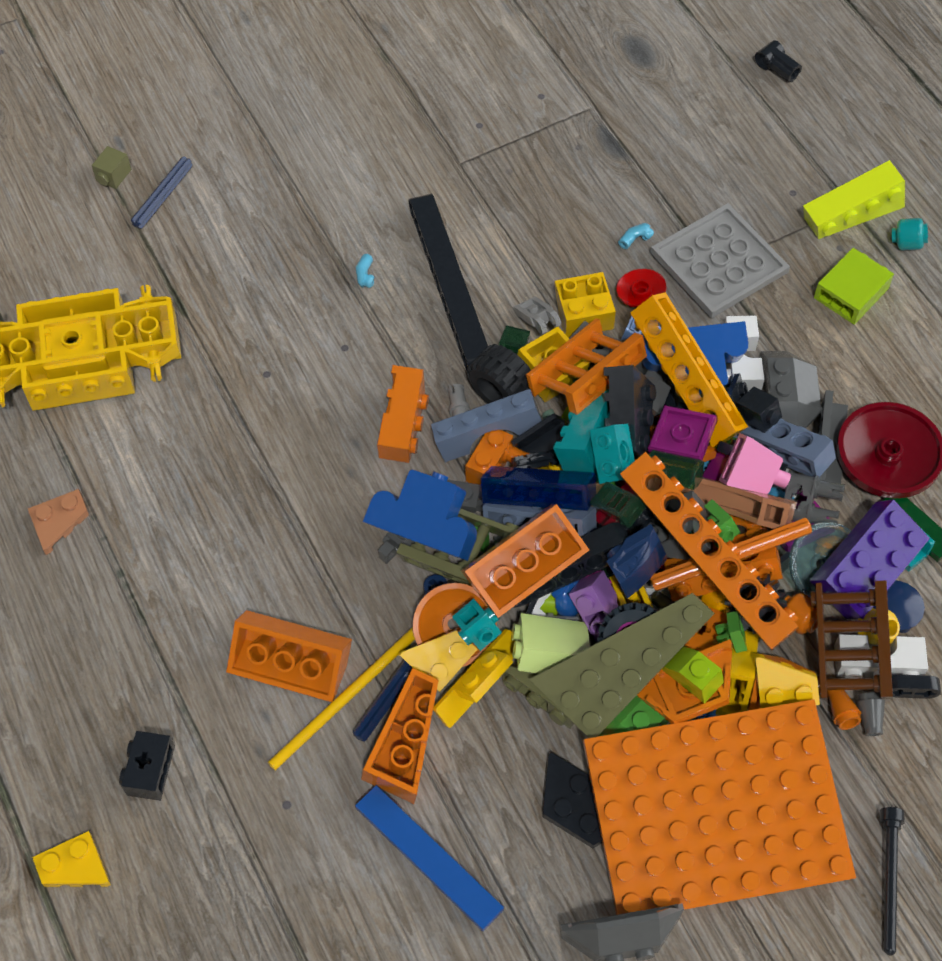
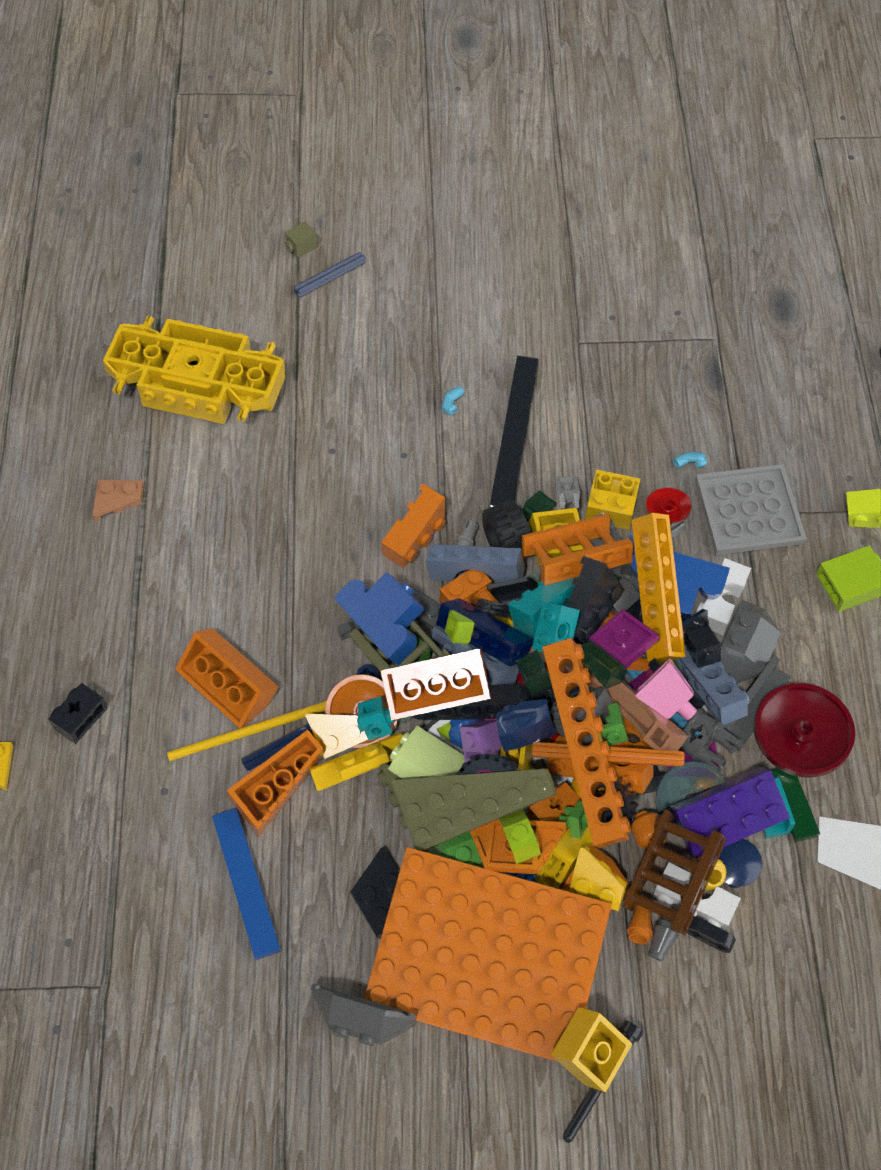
camera: 25 degrees right, 0 degrees up
(513, 494) = (459, 628): none -> lime slope
(870, 851) = (591, 1049): none -> yellow brick

